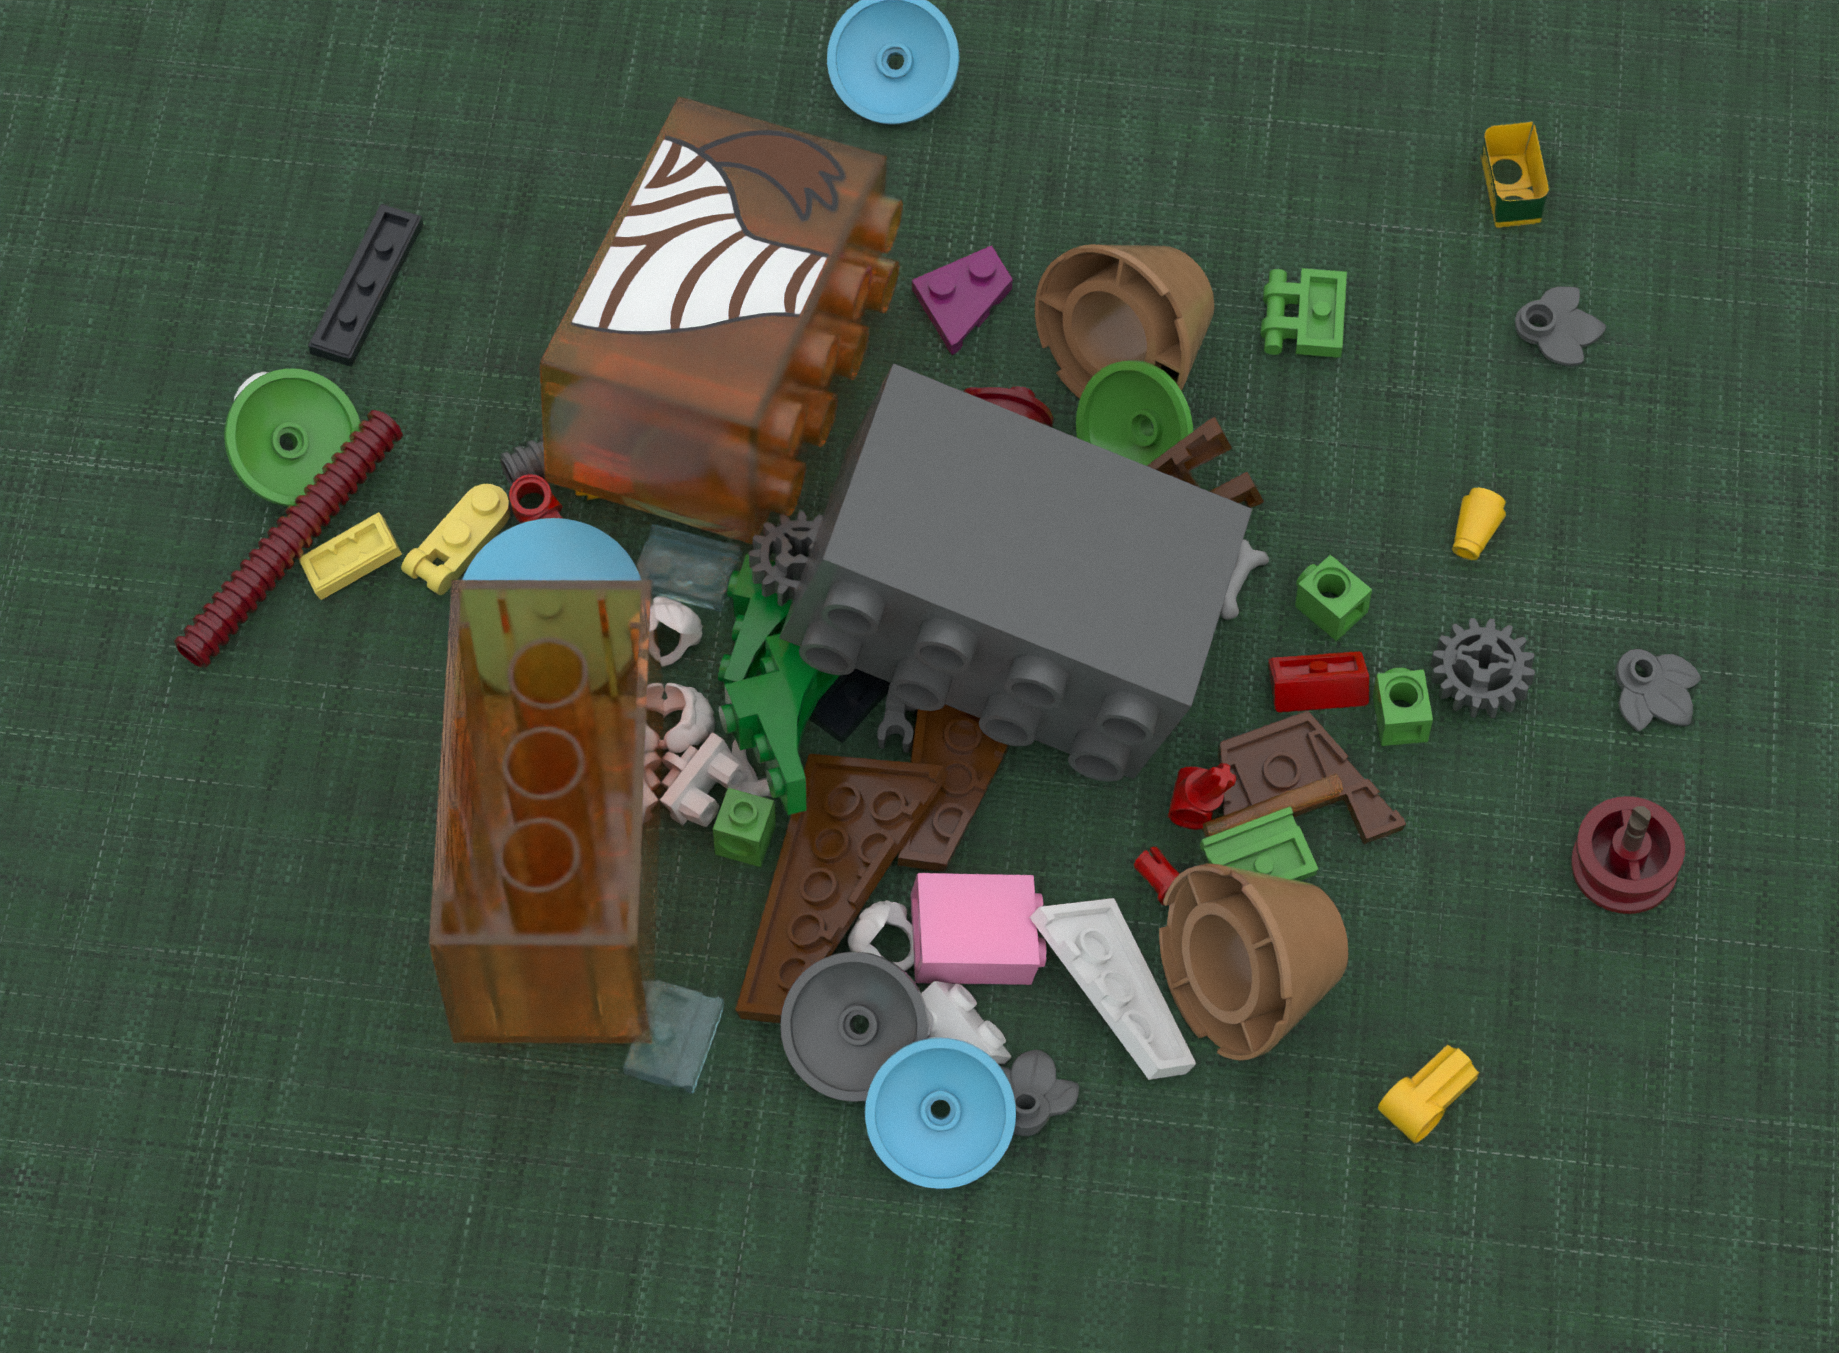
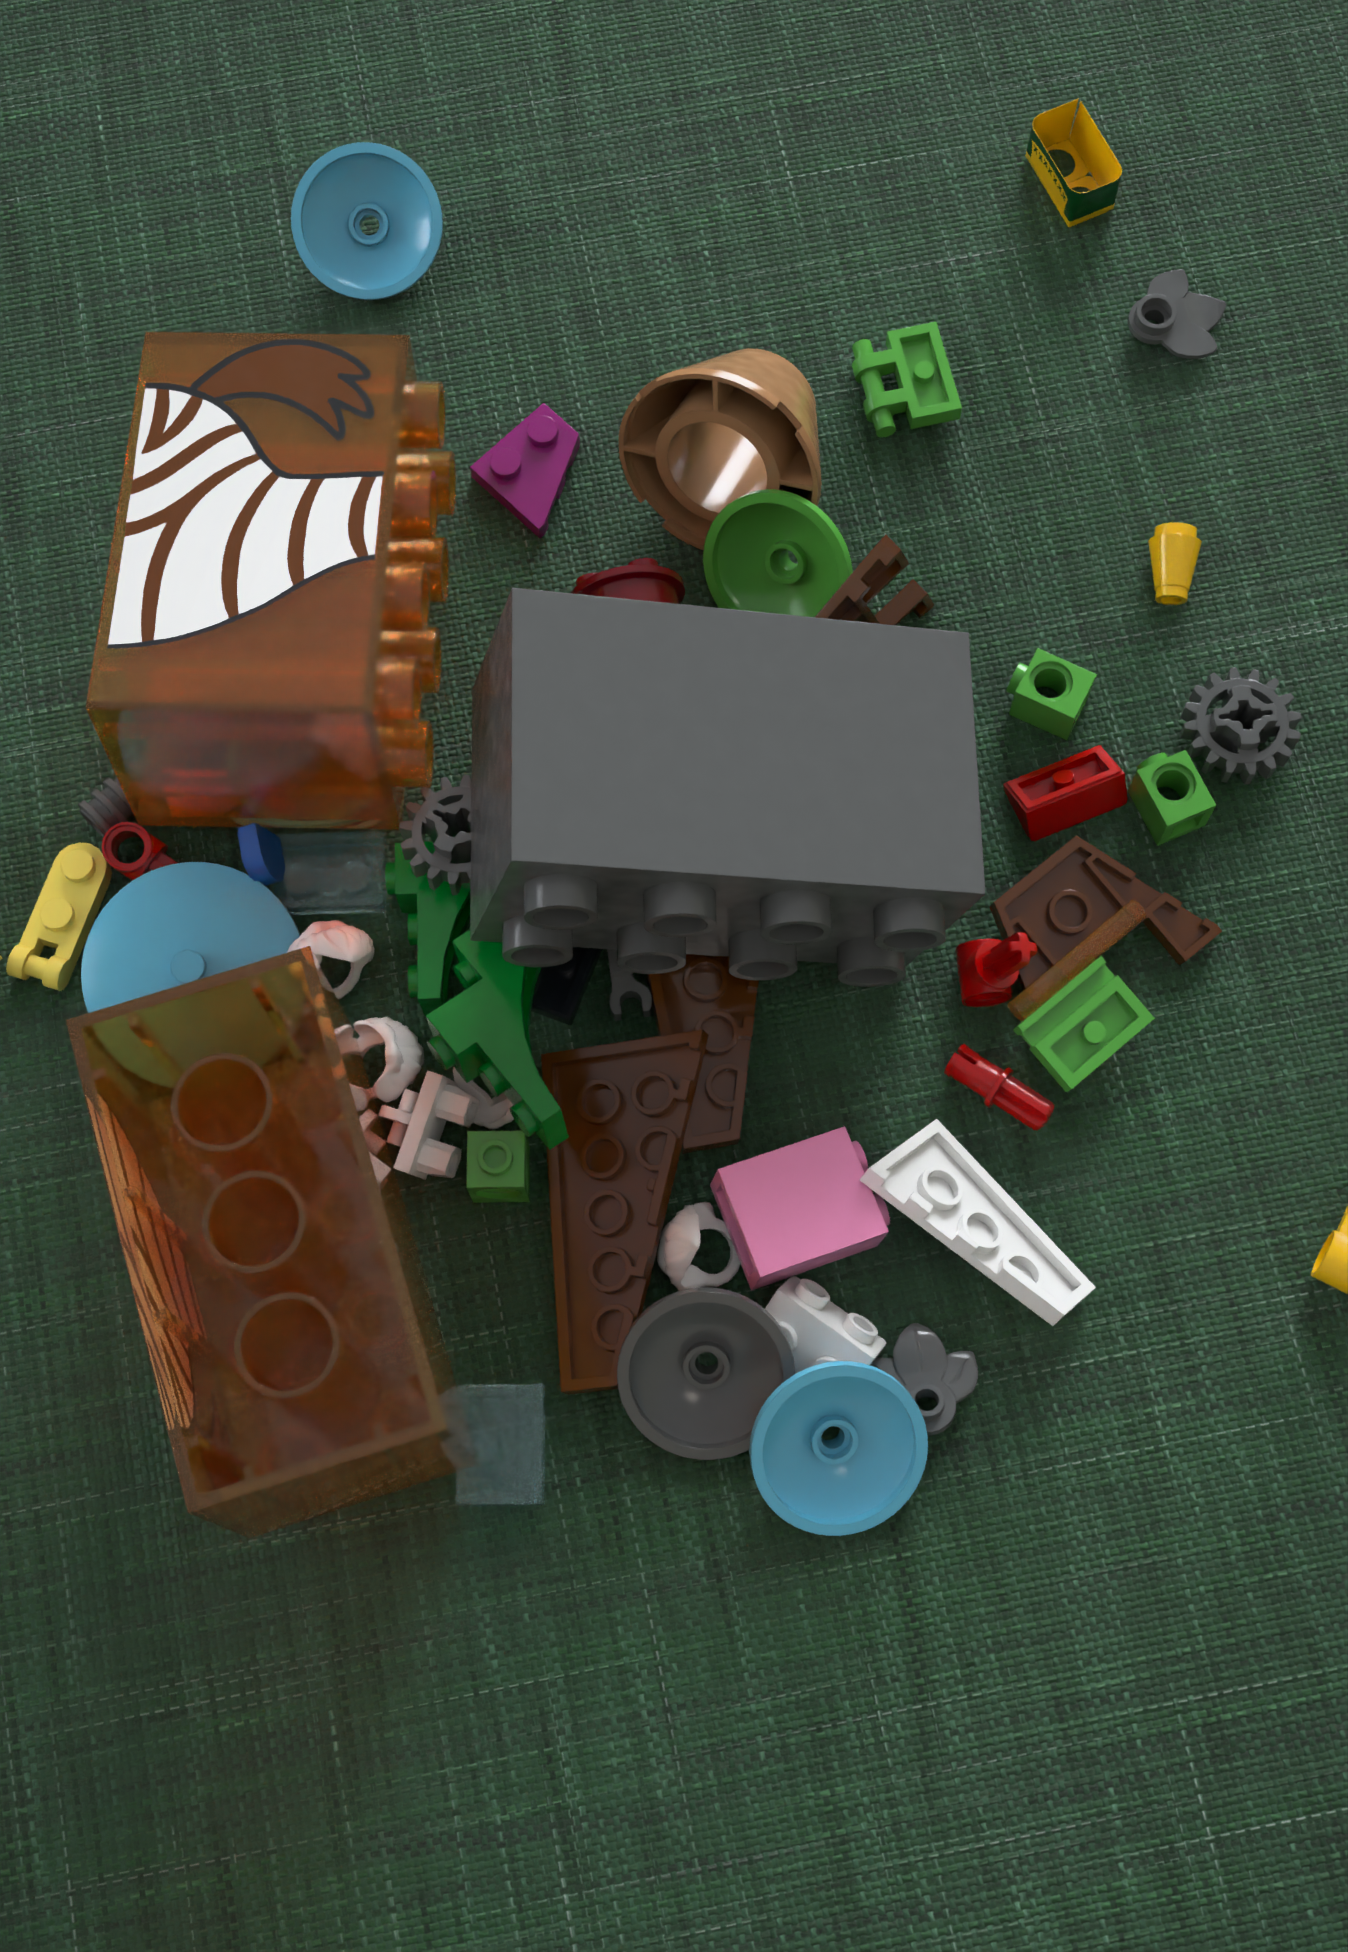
camera: 15 degrees left, 10 degrees up
(636, 532) = (261, 854): none -> blue tile
(1248, 954) = (1125, 1154): medium nougat cone -> none

